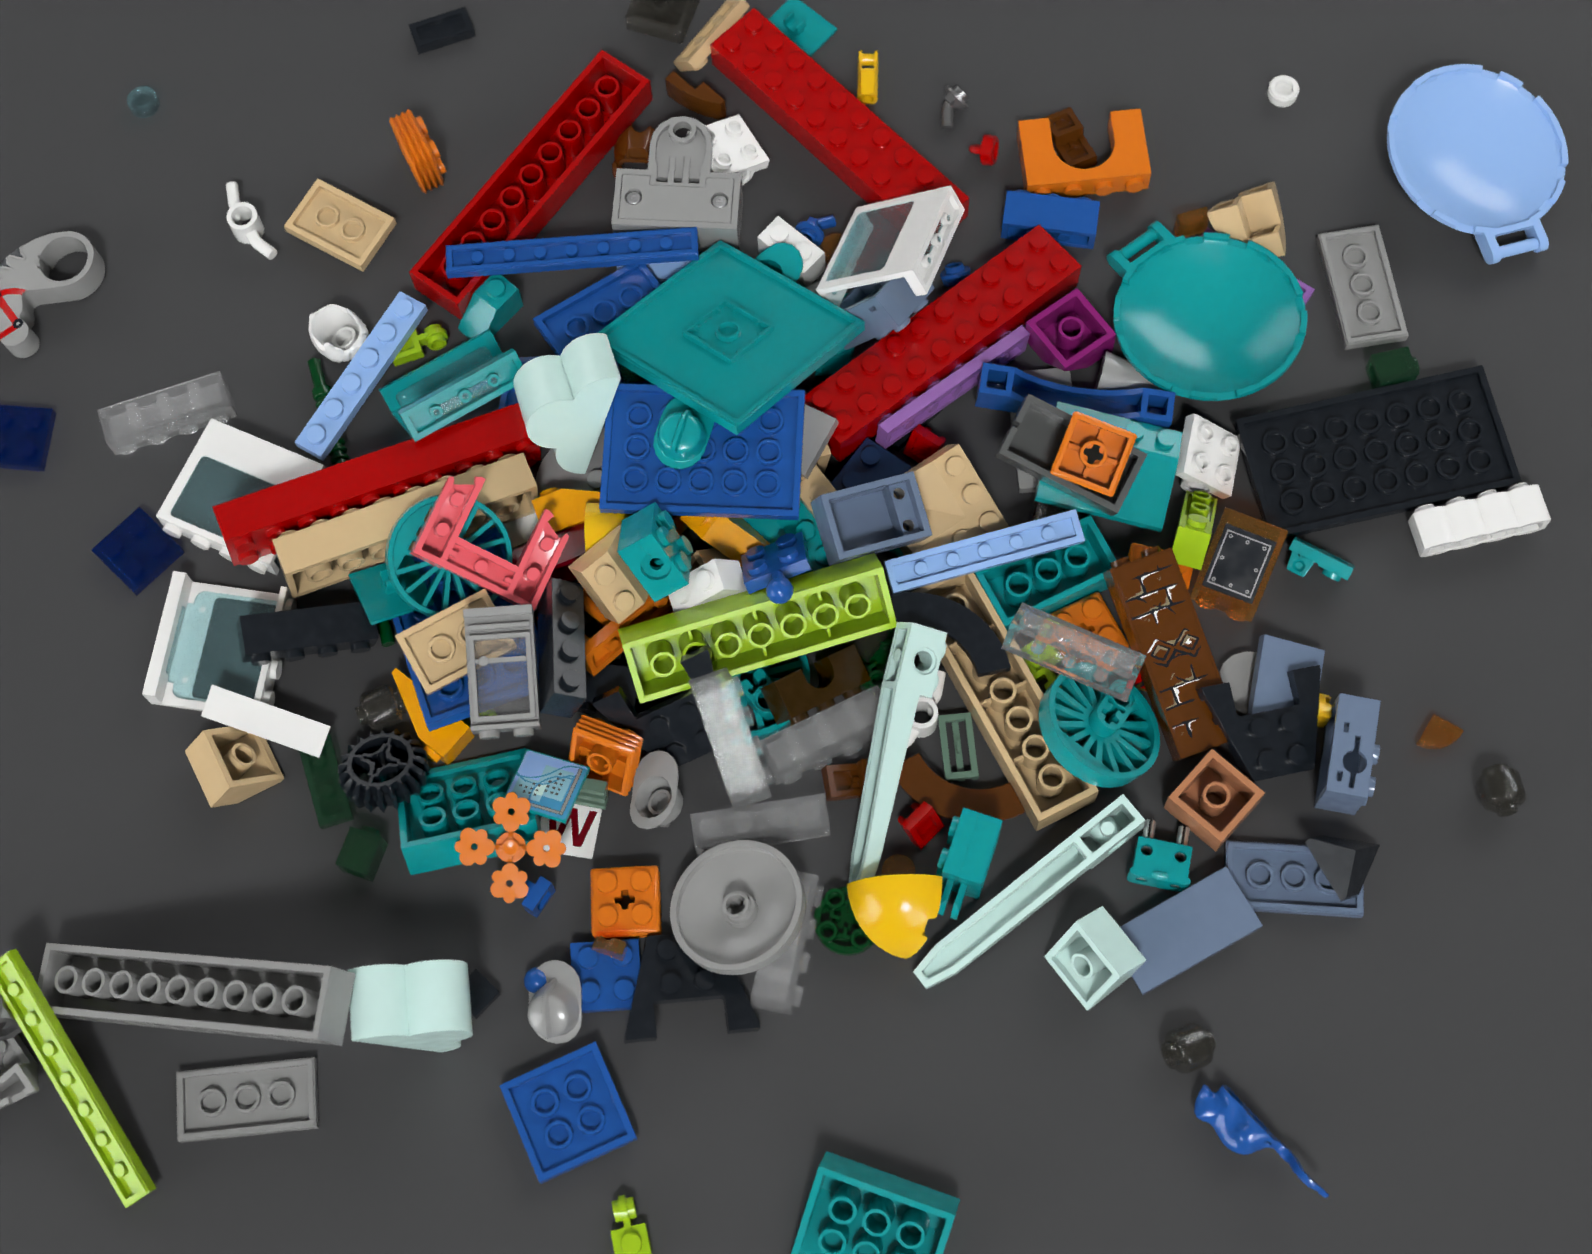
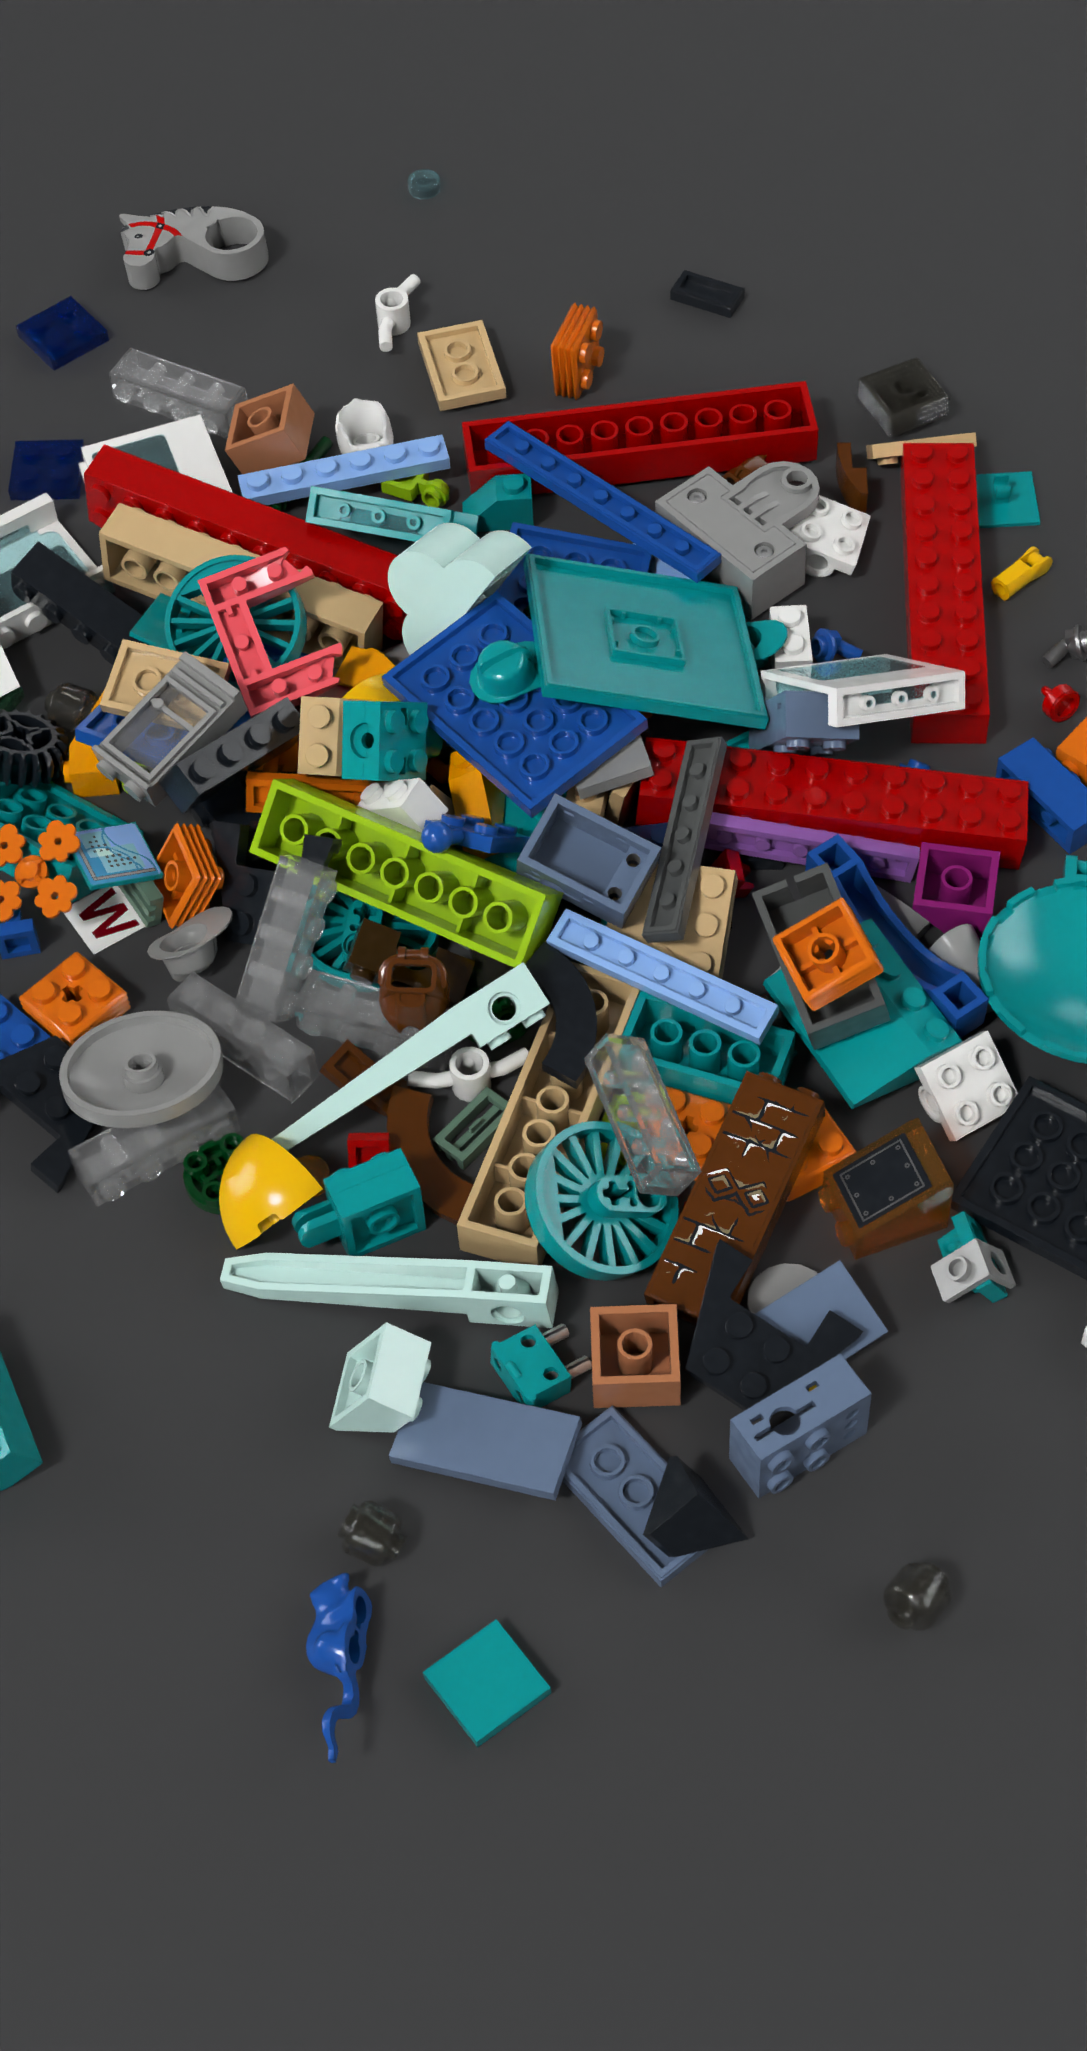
camera: 45 degrees right, 15 degrees down
(277, 389) = (270, 430): none -> nougat brick
(614, 948) = (17, 1017): clear orange tile -> none
(859, 712) = (410, 1005): none -> reddish brown helmet
(907, 449) = (684, 840): none -> dark grey tile
(1194, 528) = (869, 1117): lime slope -> none
(1330, 572) = (969, 1268): none -> light grey bracket
(1338, 1066) = (487, 1683): none -> teal tile
(1439, 734) = (918, 1502): clear orange tile -> none

